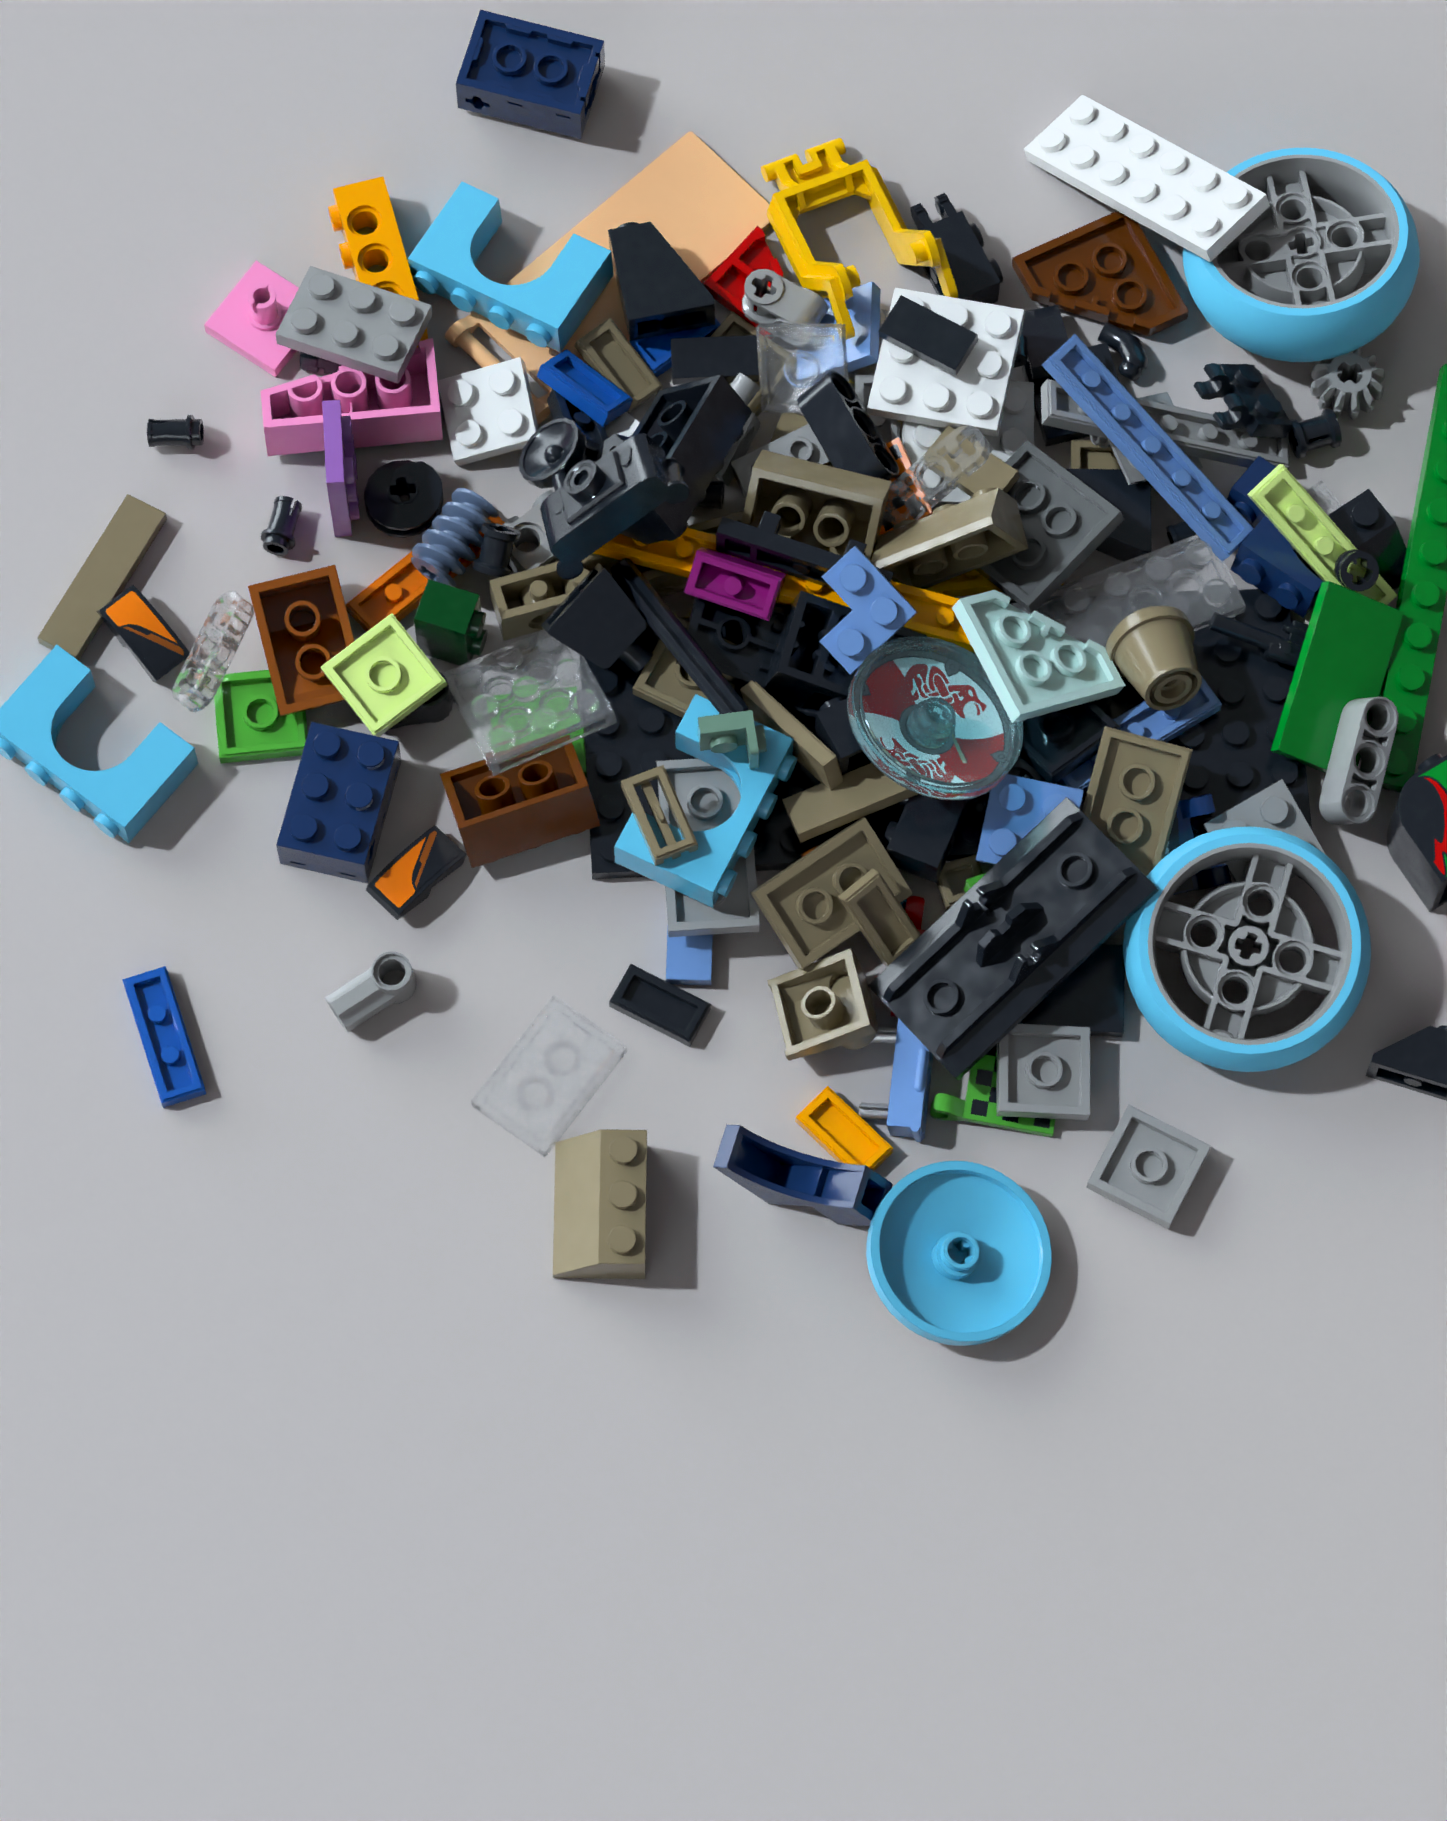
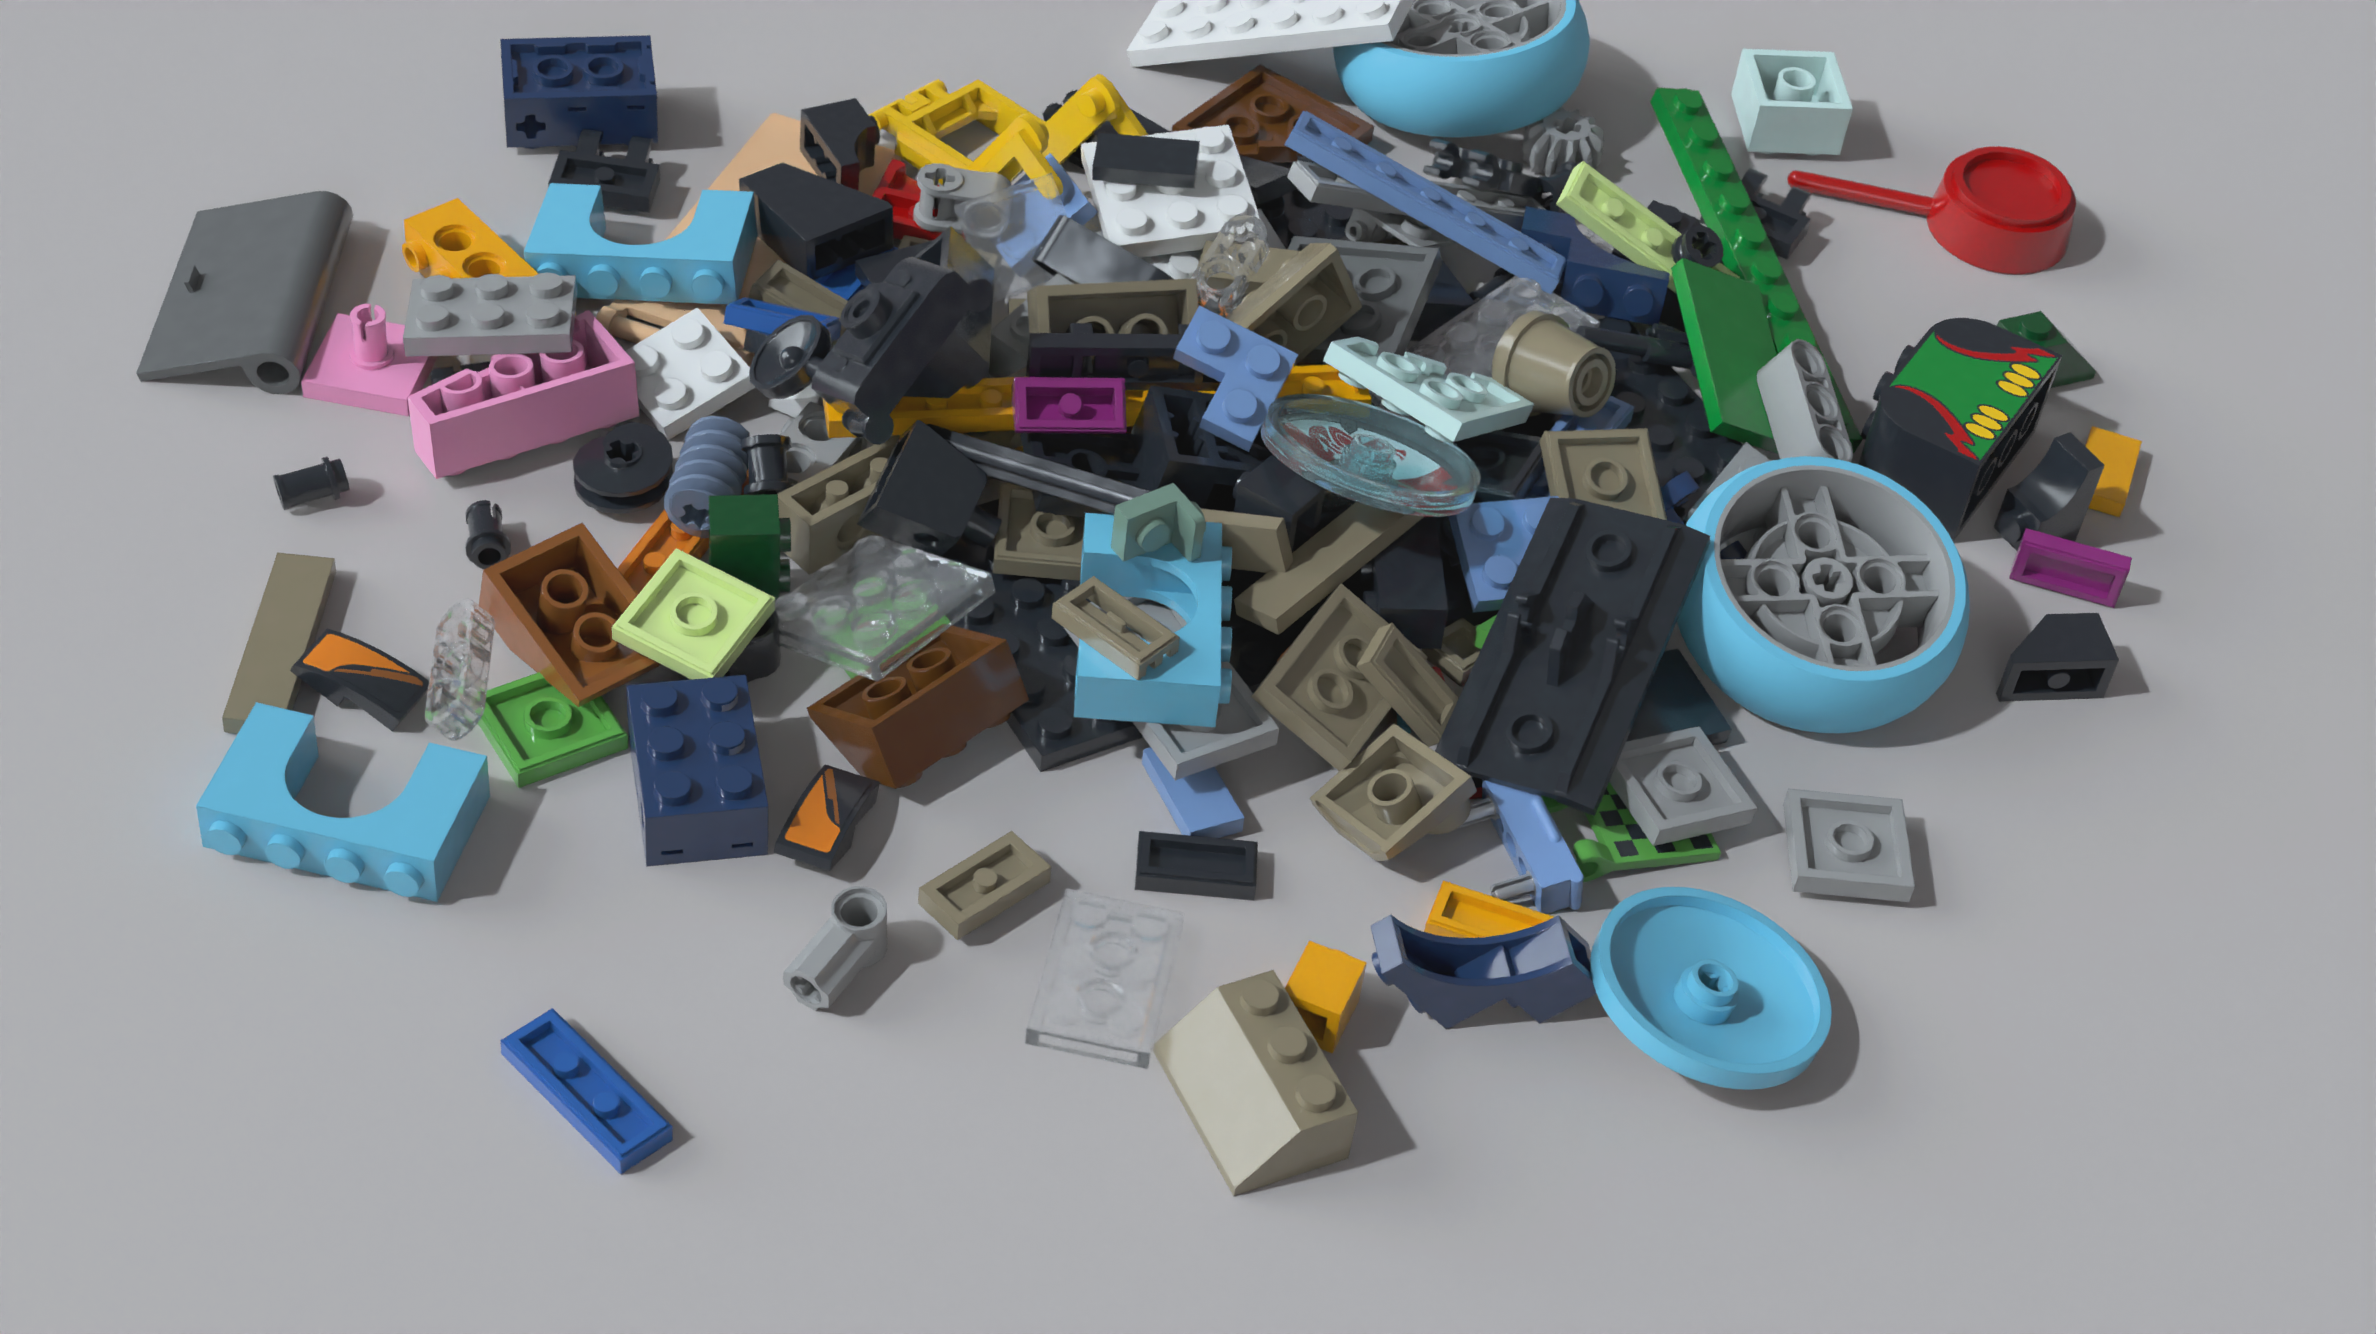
camera: 30 degrees left, 25 degrees down
(200, 213) = (250, 290): none -> dark grey door
(340, 468) = (540, 436): medium lavender plate -> none
(498, 971) = (984, 885): none -> dark tan plate
(518, 176) = (623, 182): none -> black plate
(684, 1151) = (1326, 991): none -> light orange brick
(719, 200) = (839, 140): none -> black arch

